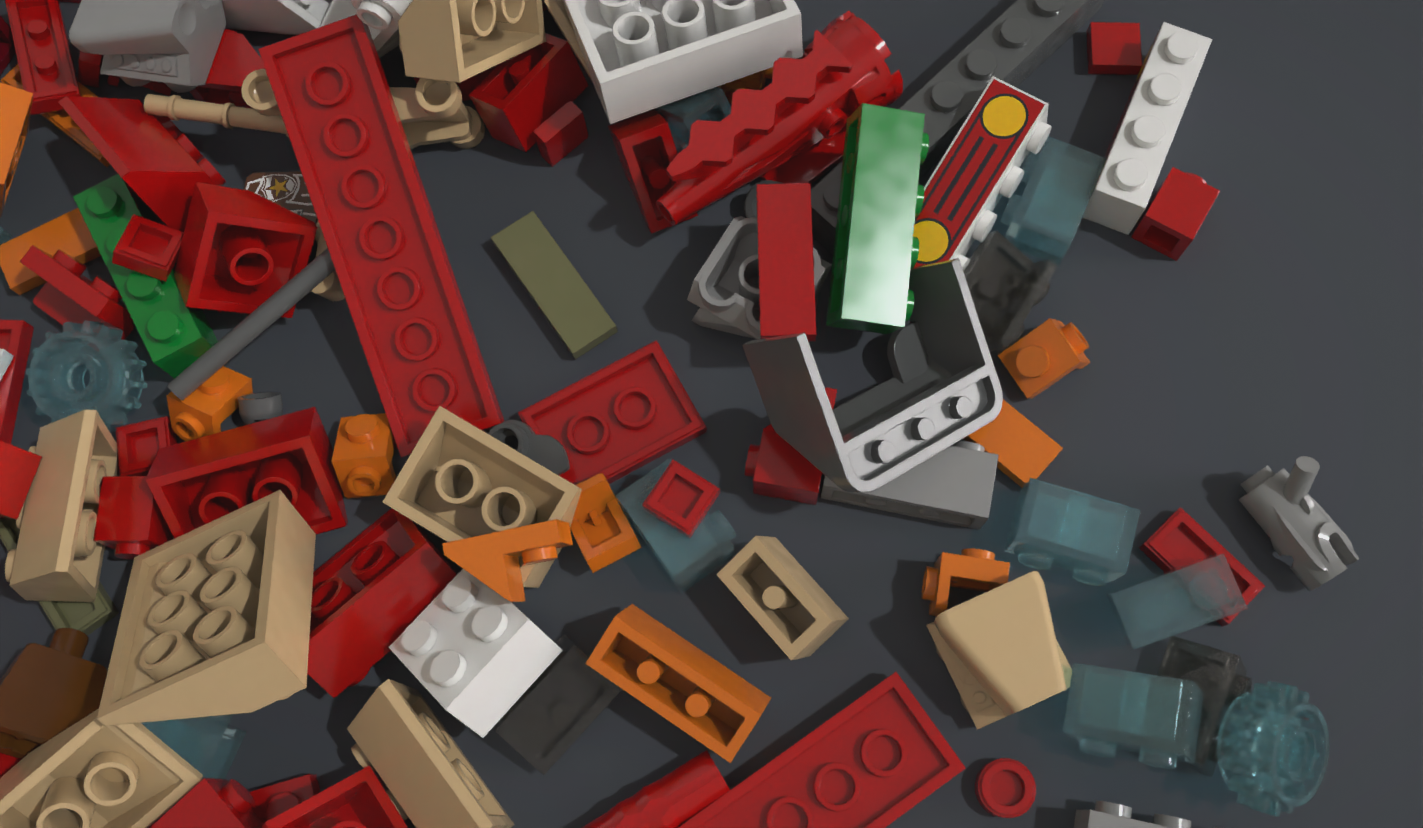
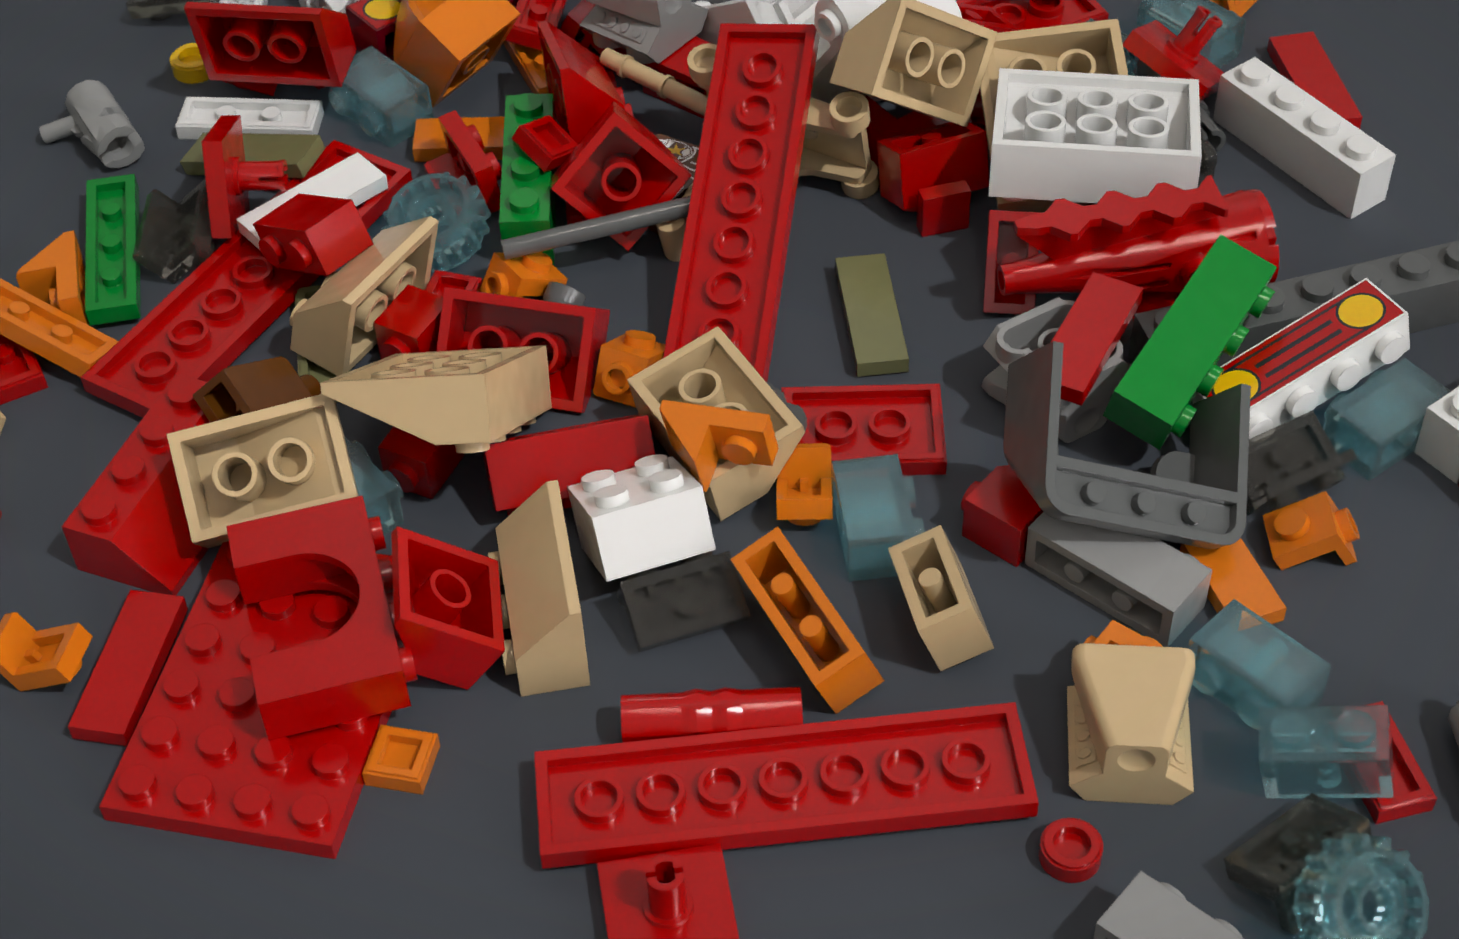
camera: 25 degrees right, 25 degrees down
(681, 498) = (889, 481): red tile -> none
(1133, 714) = (1232, 819): clear light blue brick -> none

